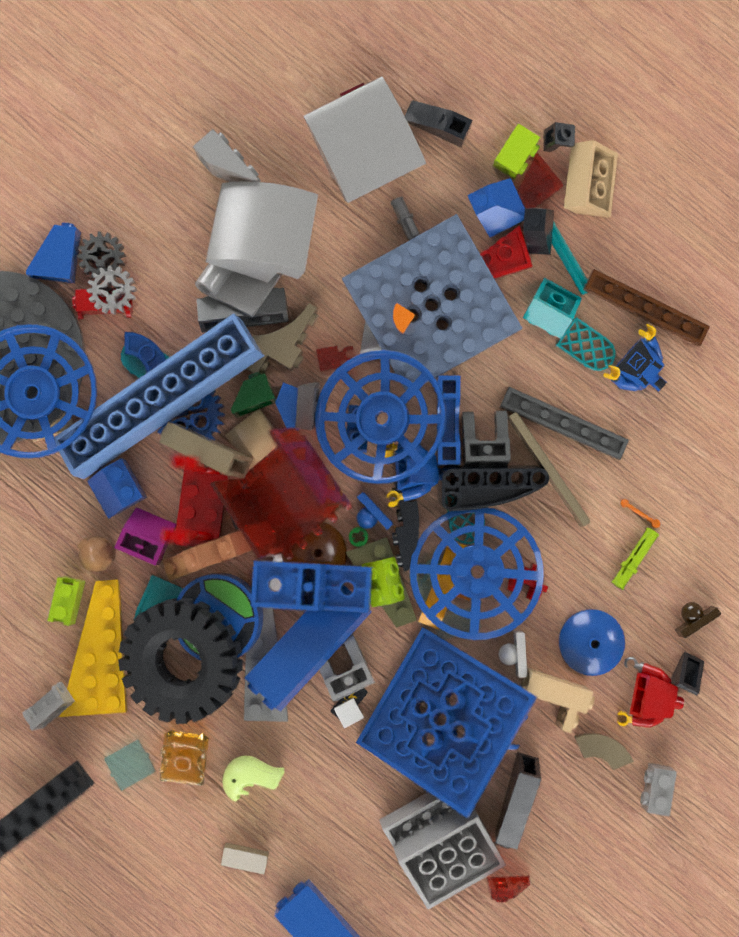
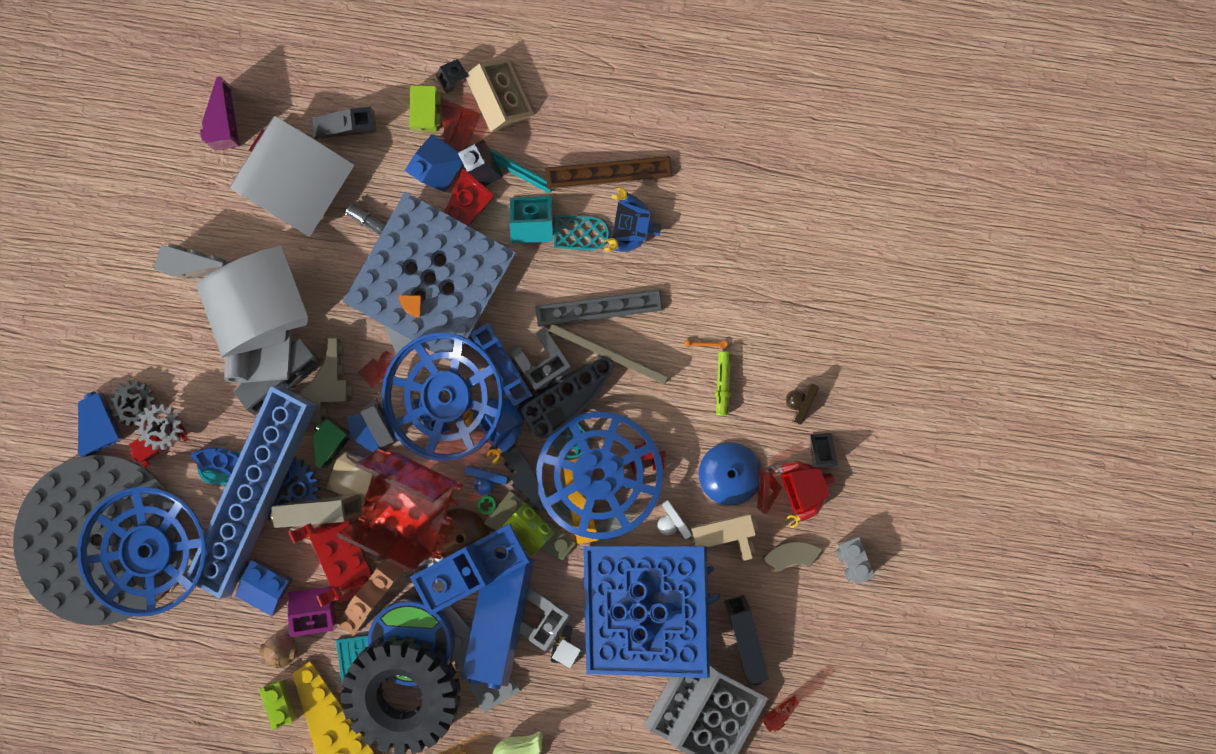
camera: 30 degrees left, 0 degrees up
(330, 51) = (219, 118): none -> magenta slope
(617, 677) = (767, 490): none -> clear red slope

